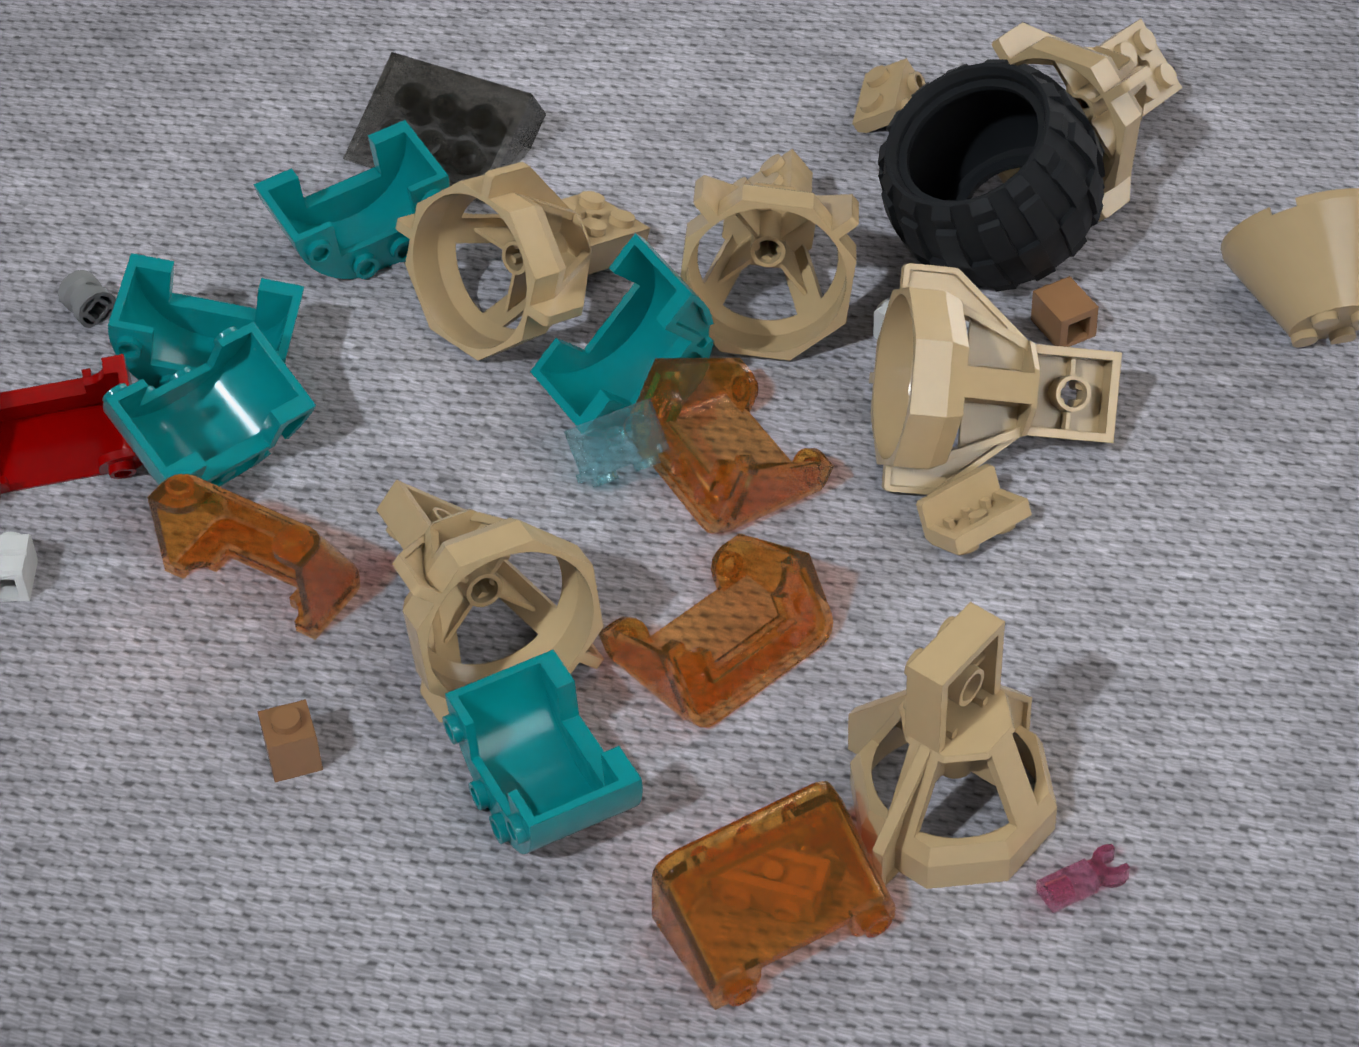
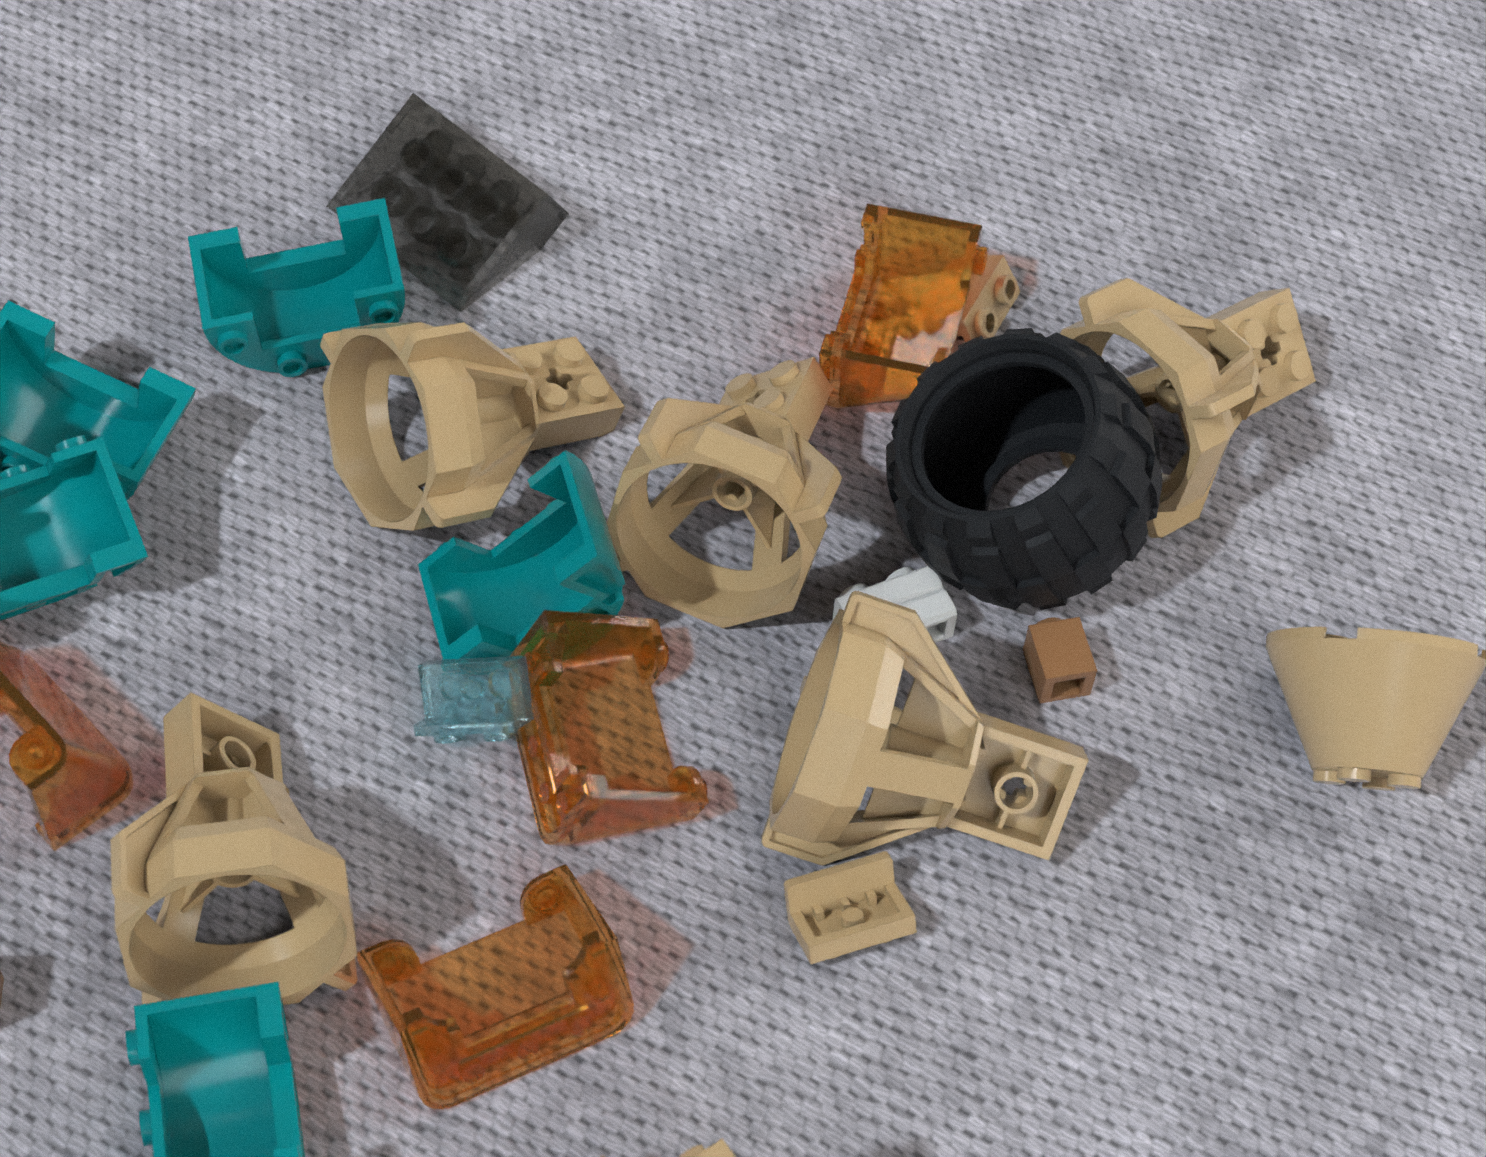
camera: 10 degrees right, 10 degrees up
(842, 103) = (900, 304): none -> clear orange windscreen

